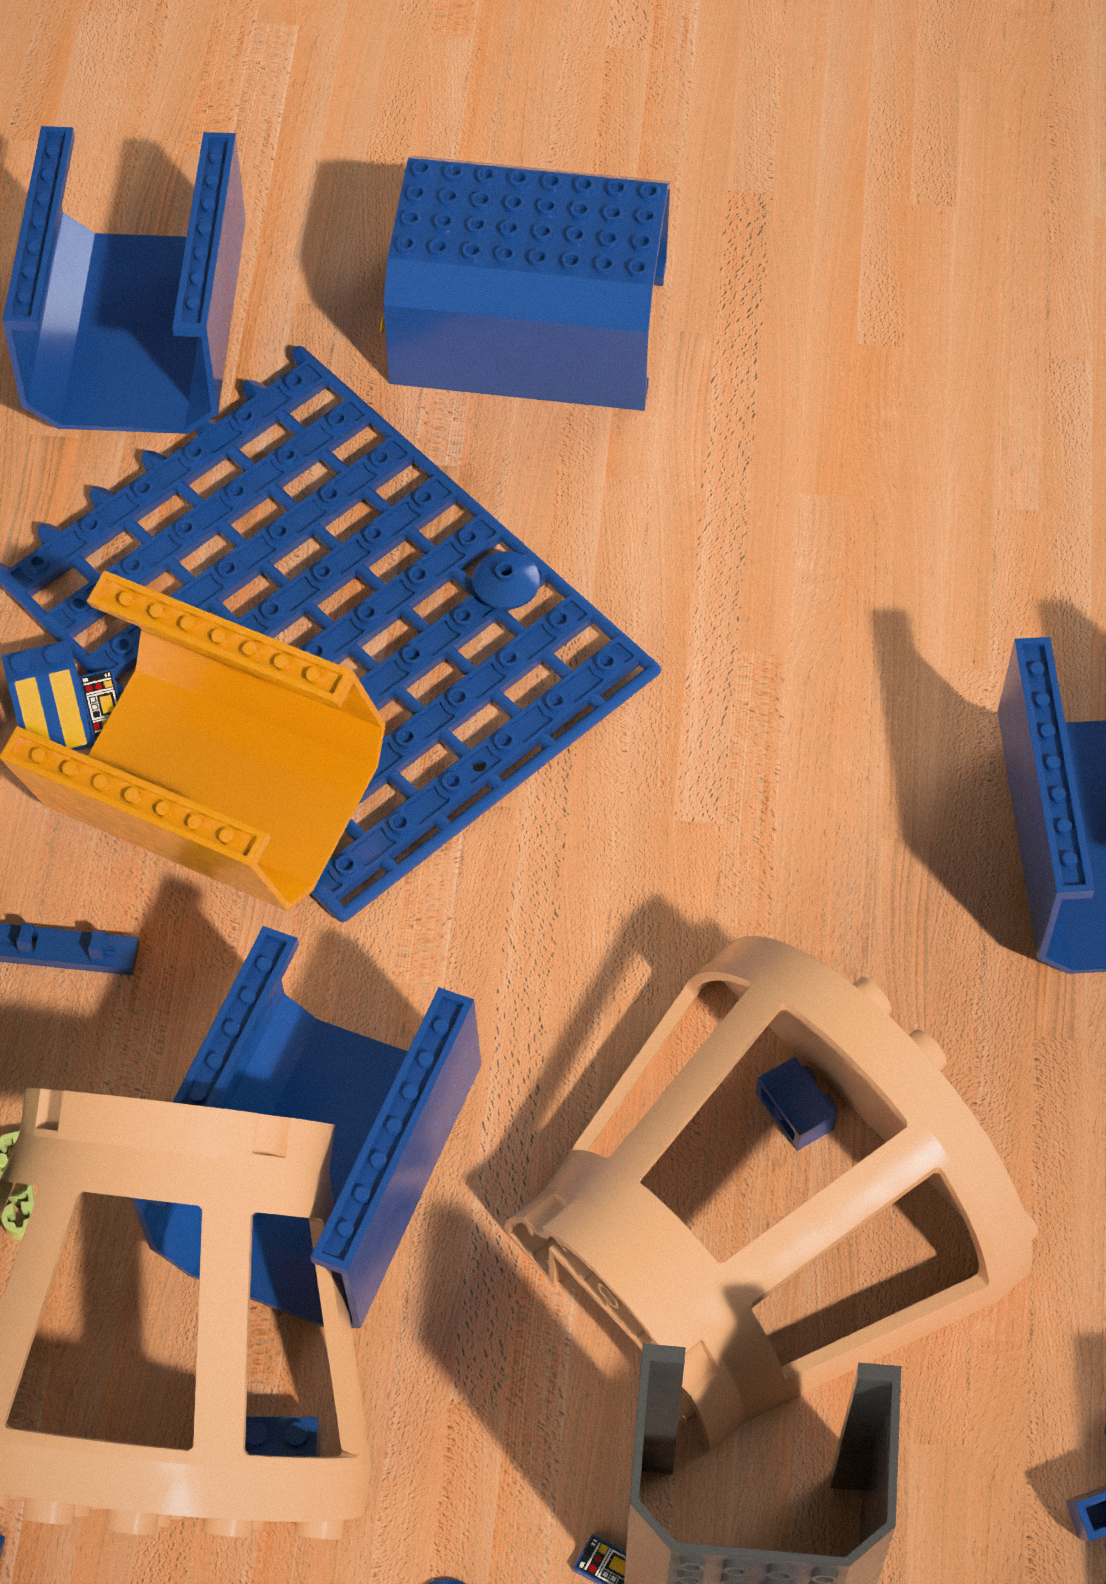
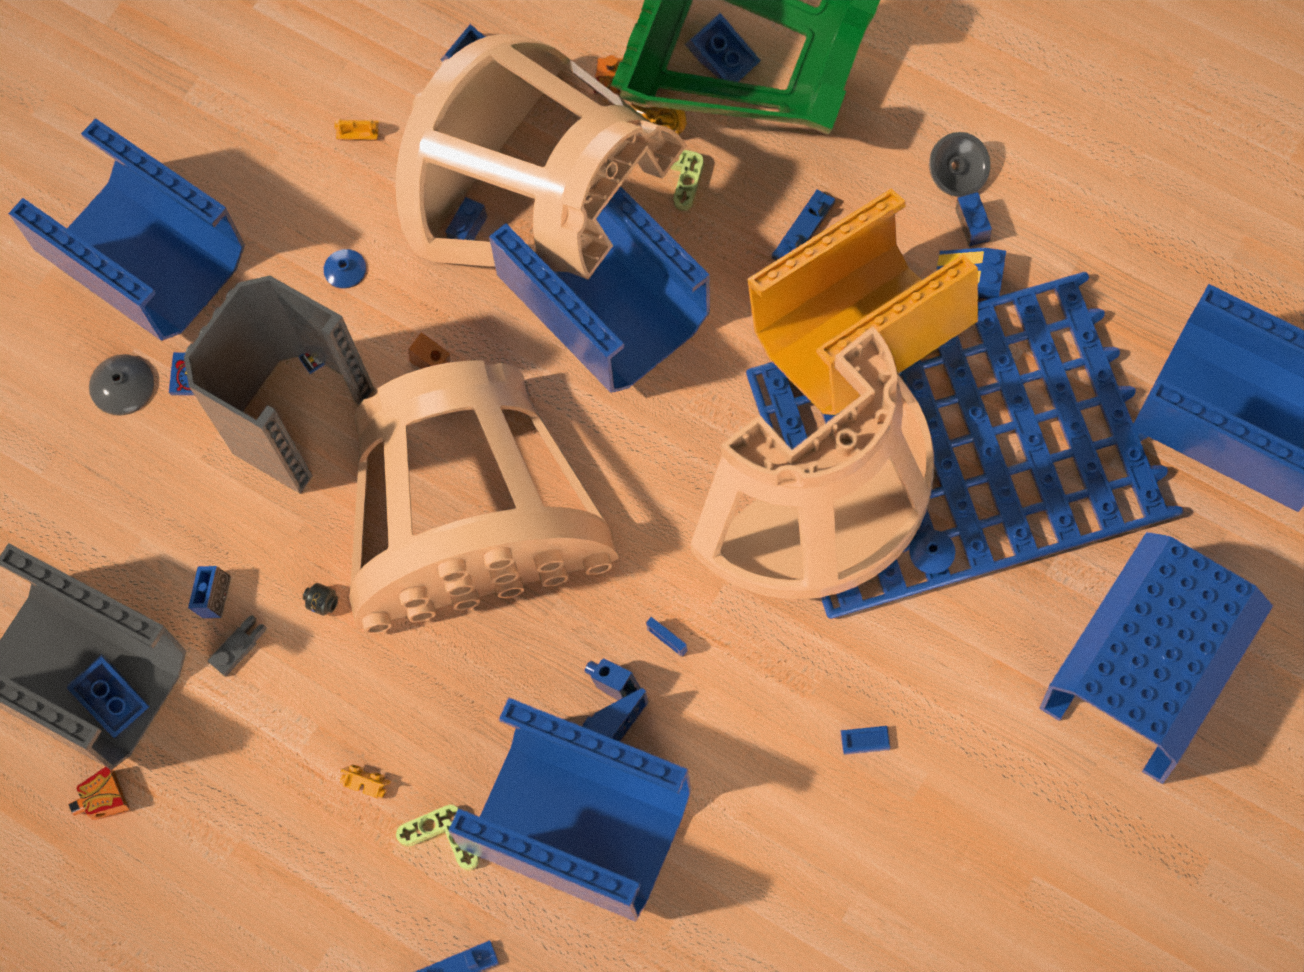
camera: 125 degrees right, 10 degrees up
(505, 667) = (832, 504): none -> light nougat piece
(546, 1374) = (427, 353): none -> orange torso
(799, 570) = (865, 740): none -> blue tile
(801, 846) = (666, 636): none -> blue tile
(905, 876) = (612, 679): none -> blue torso
(961, 843) = (618, 717): none -> blue slope
(1022, 1336) = (320, 599): none -> pearl dark grey head

